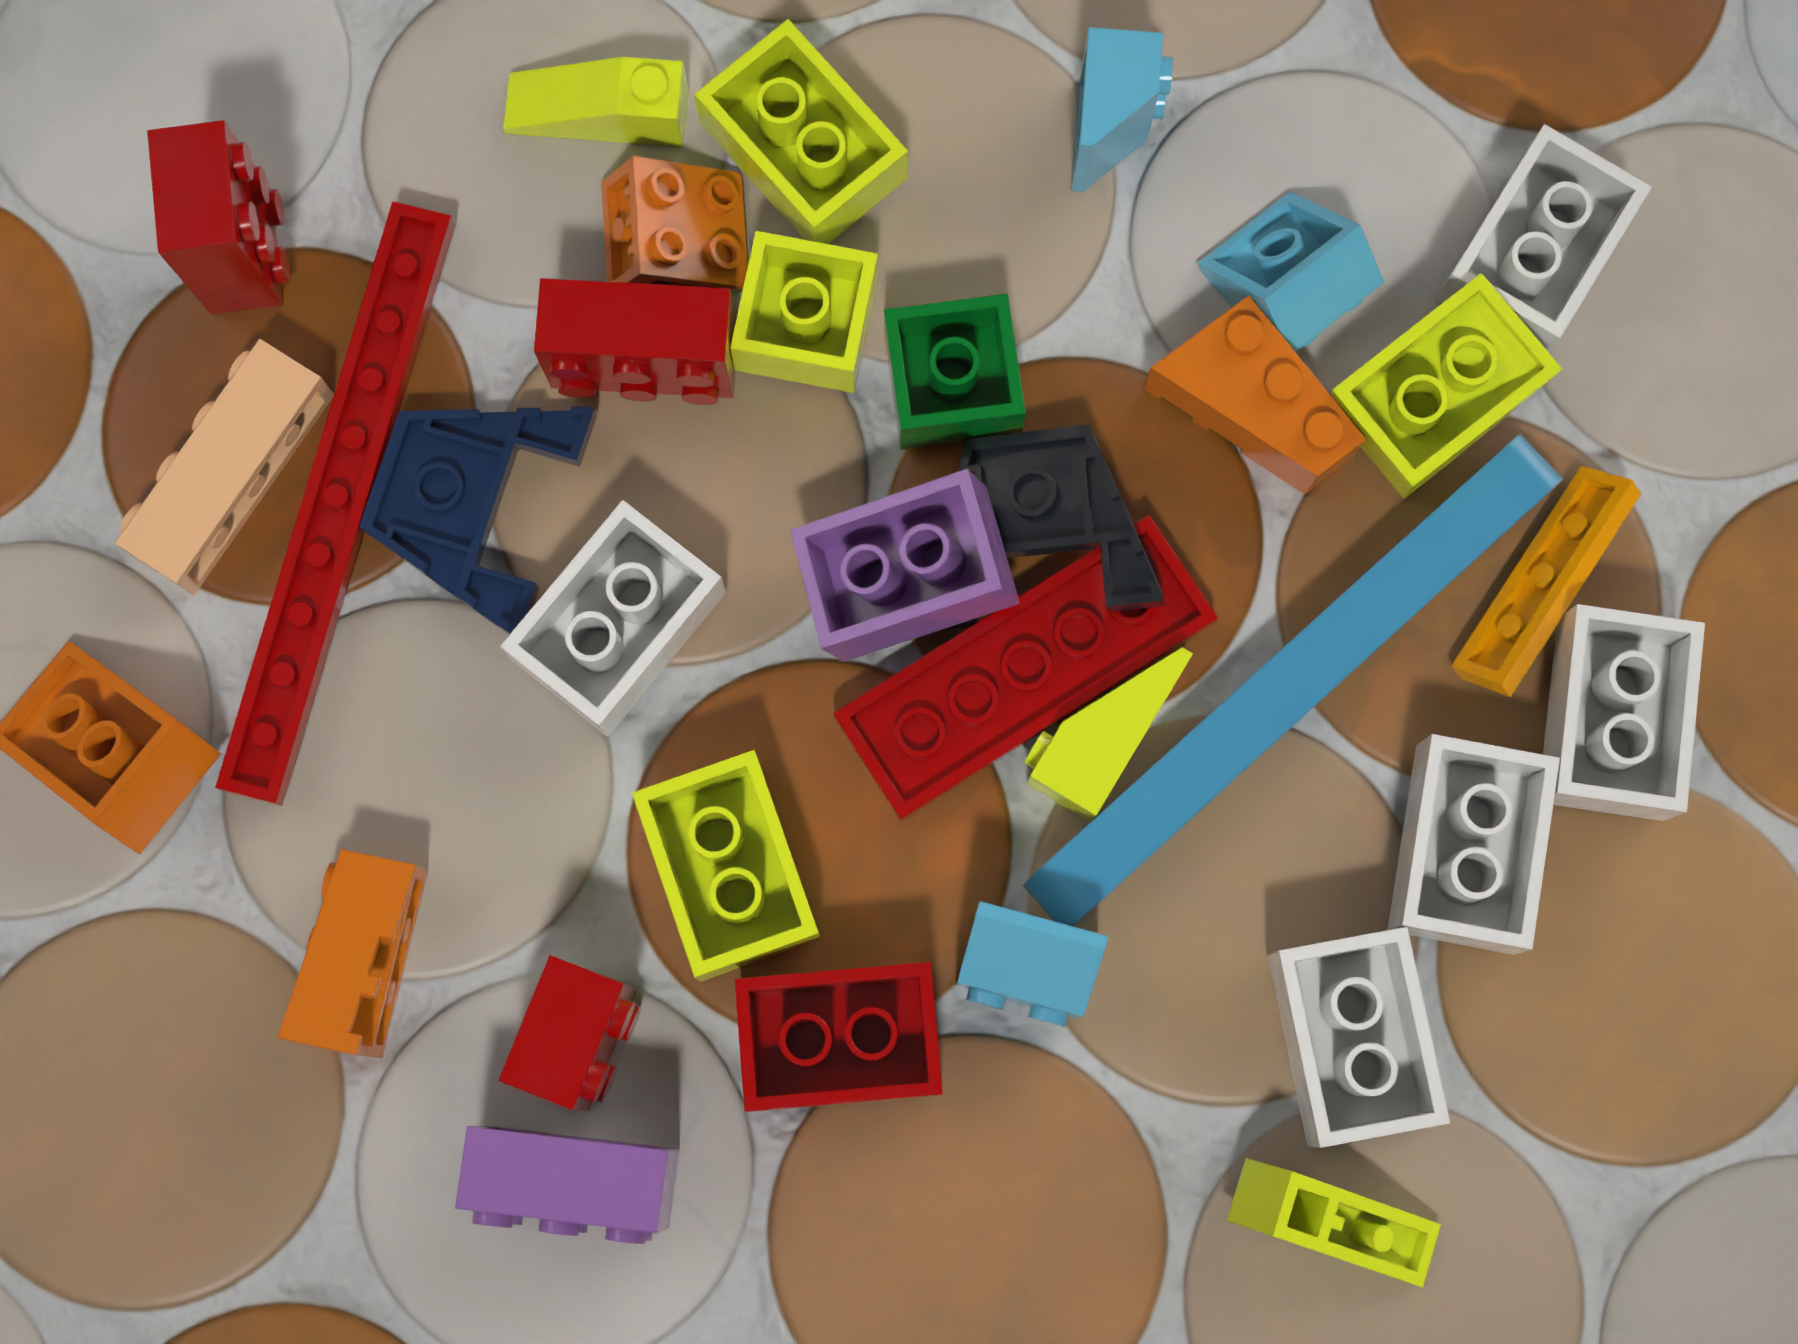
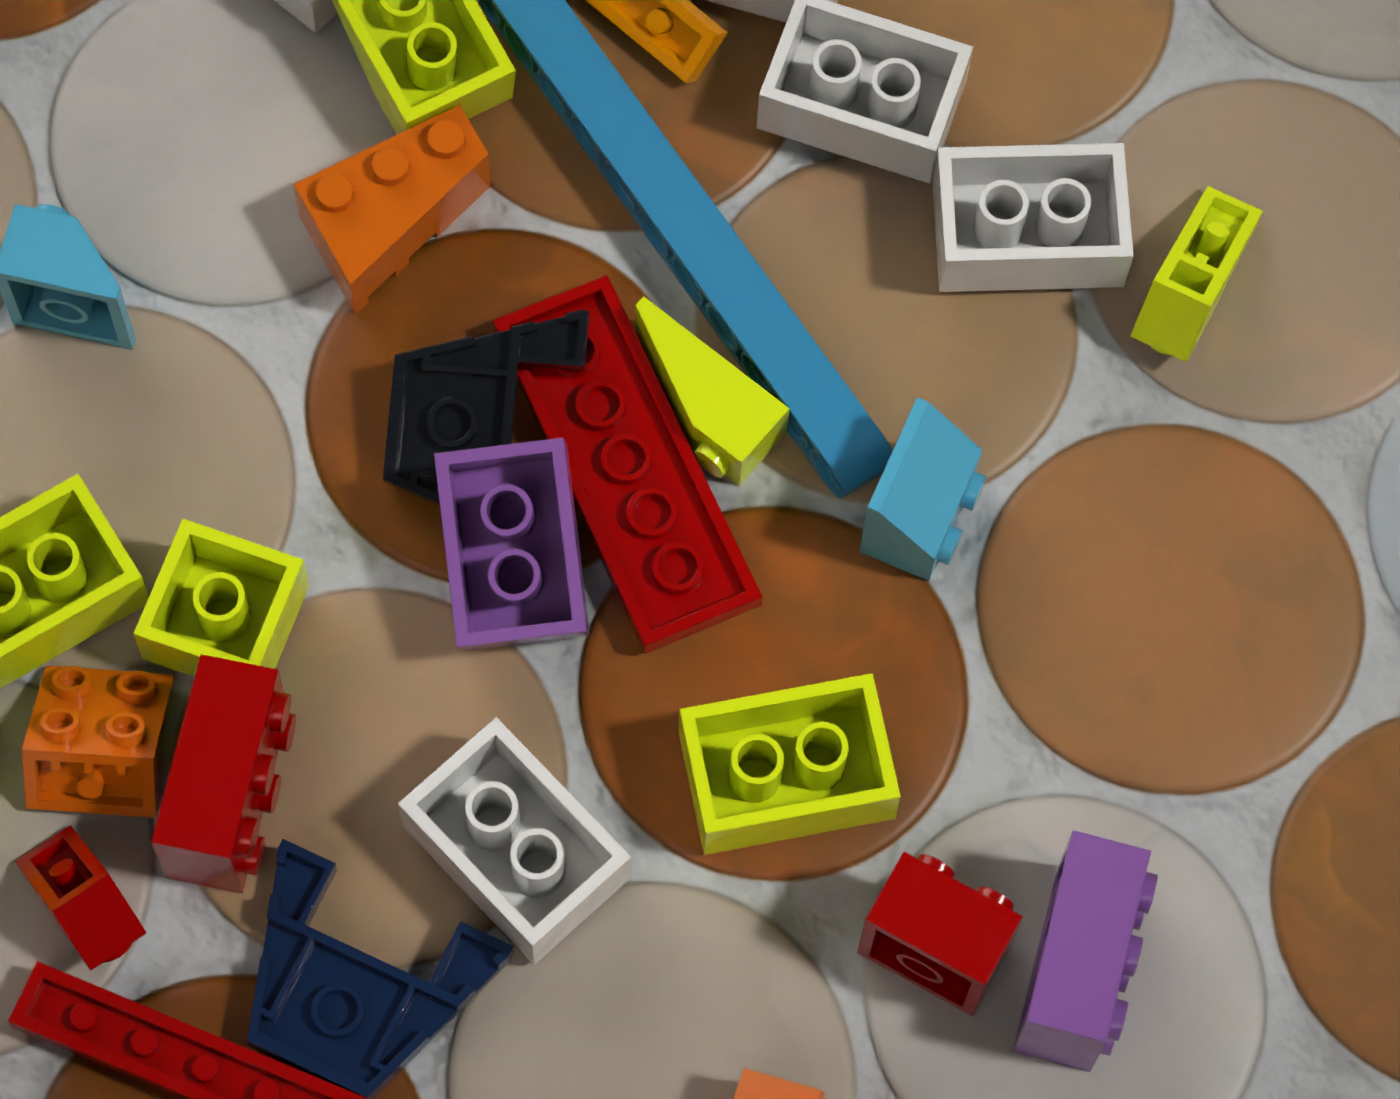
camera: 85 degrees left, 10 degrees down
(515, 241) = (81, 898): none -> red slope
(838, 1037) = (973, 681): red brick -> none
(954, 371) = (313, 475): green brick -> none
(1296, 266) = (257, 146): medium azure slope -> none

